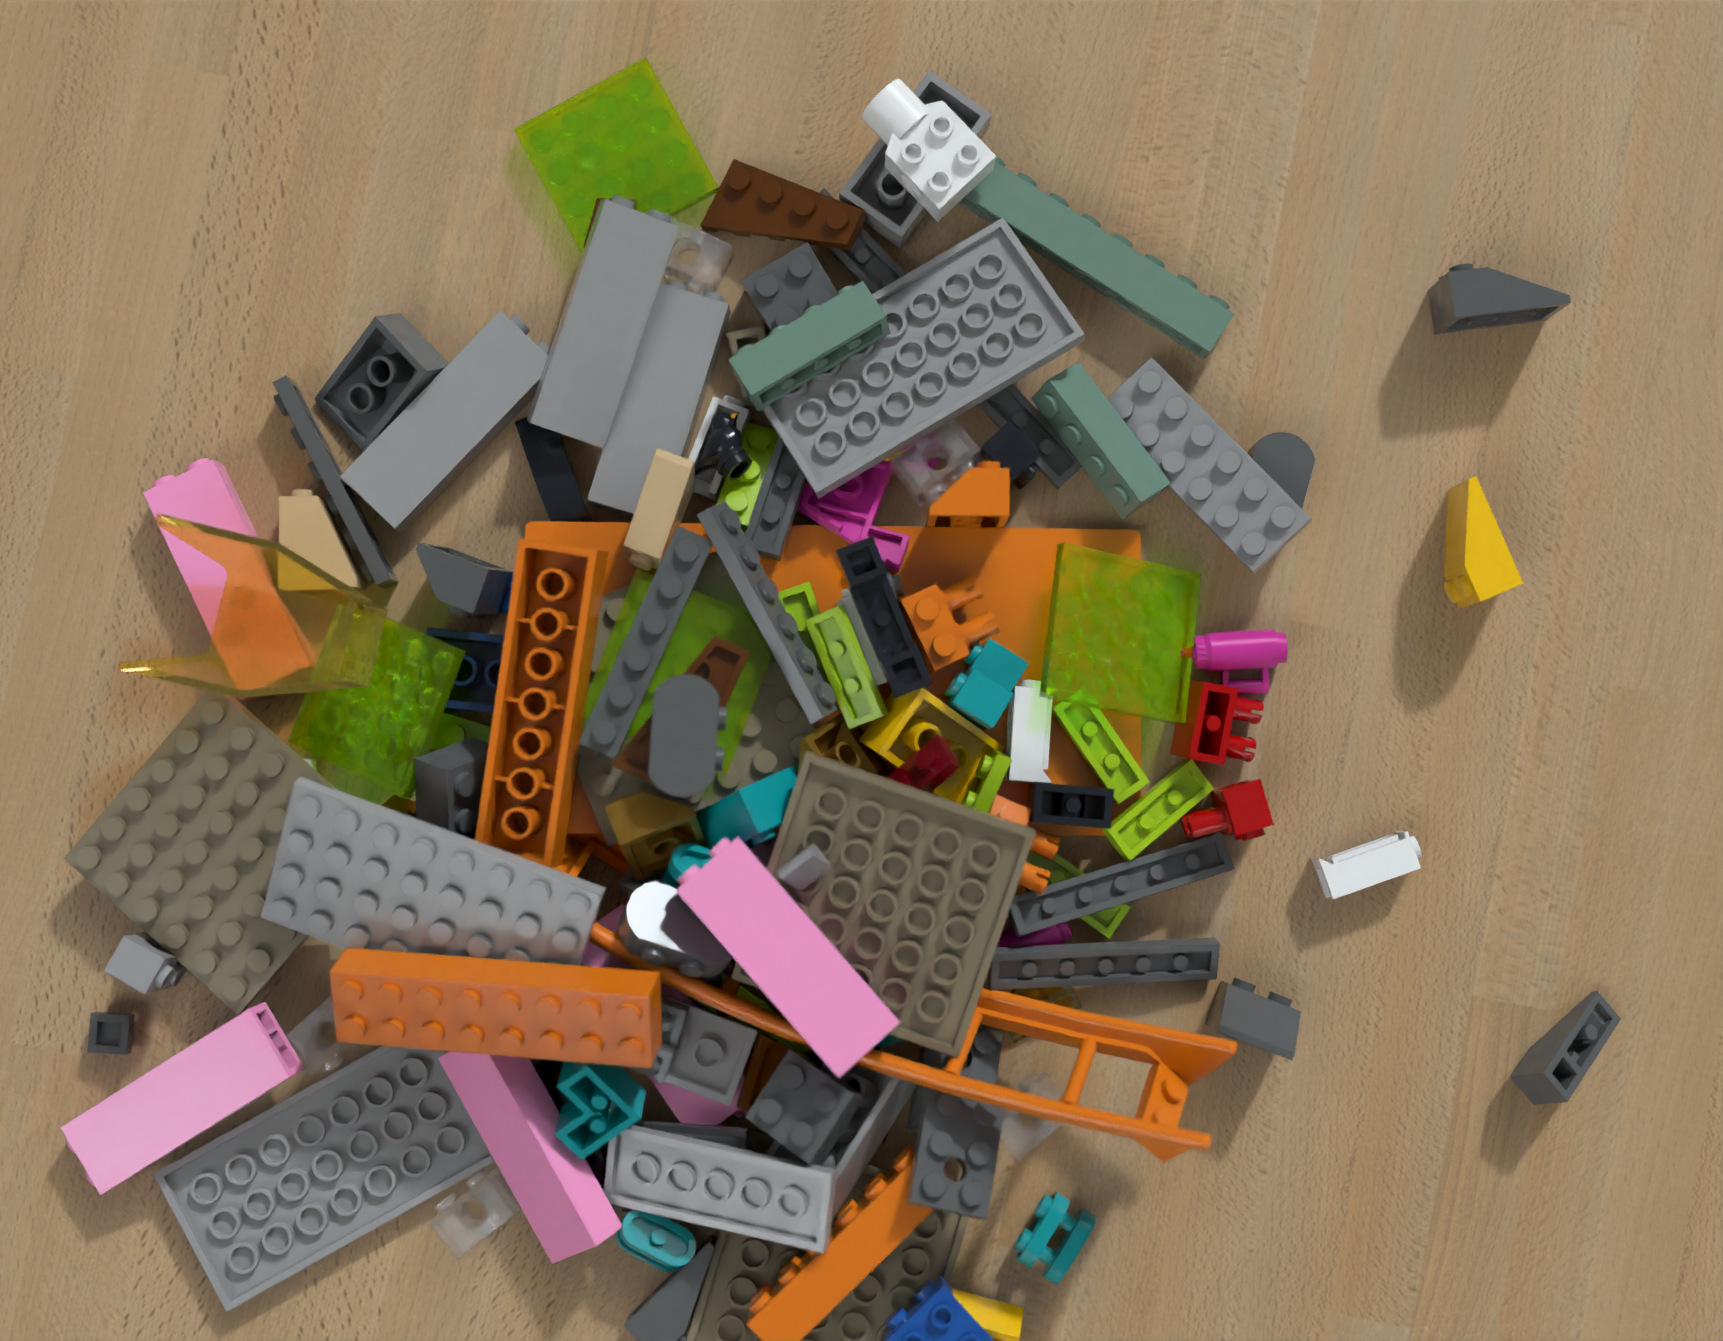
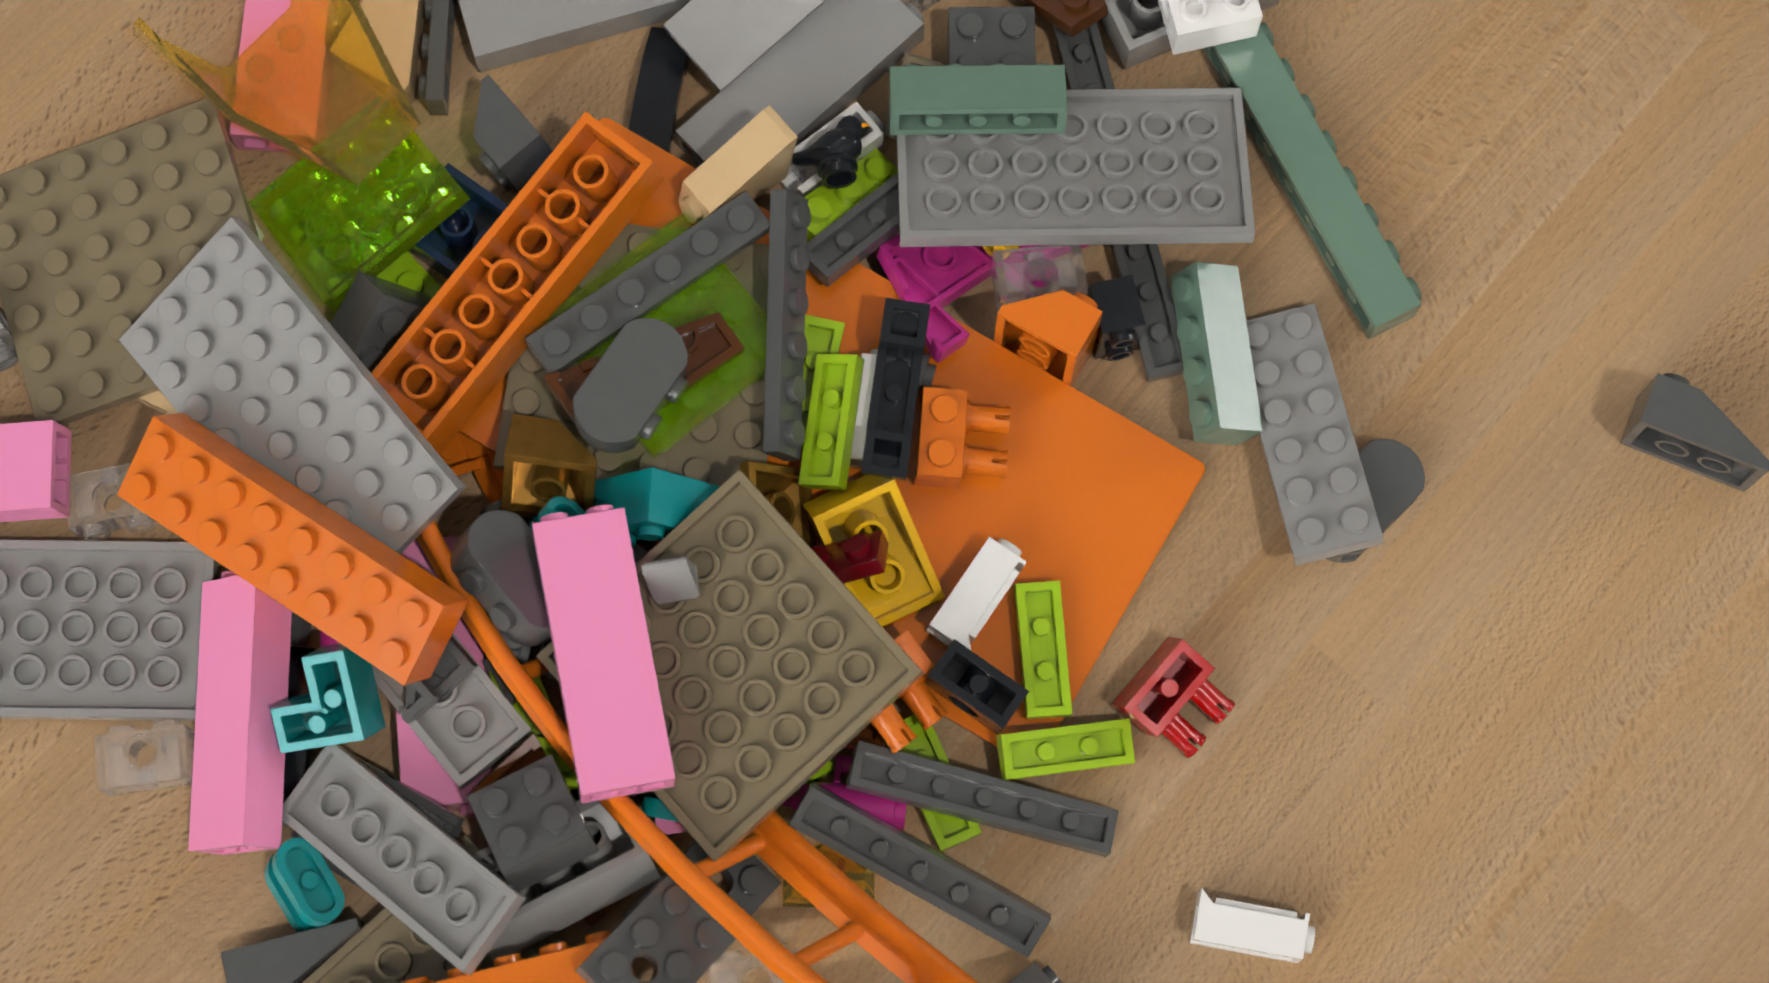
camera: 30 degrees right, 10 degrees down
(986, 685) = (960, 519): teal brick -> none
(991, 773) = (915, 609): lime plate -> none
(1120, 634) = (1126, 550): clear neon green plate -> none
(1235, 811) = (1142, 795): red brick -> none
(1241, 651) = (1240, 640): dark pink piece -> none
(1475, 551) = (1536, 684): yellow slope -> none

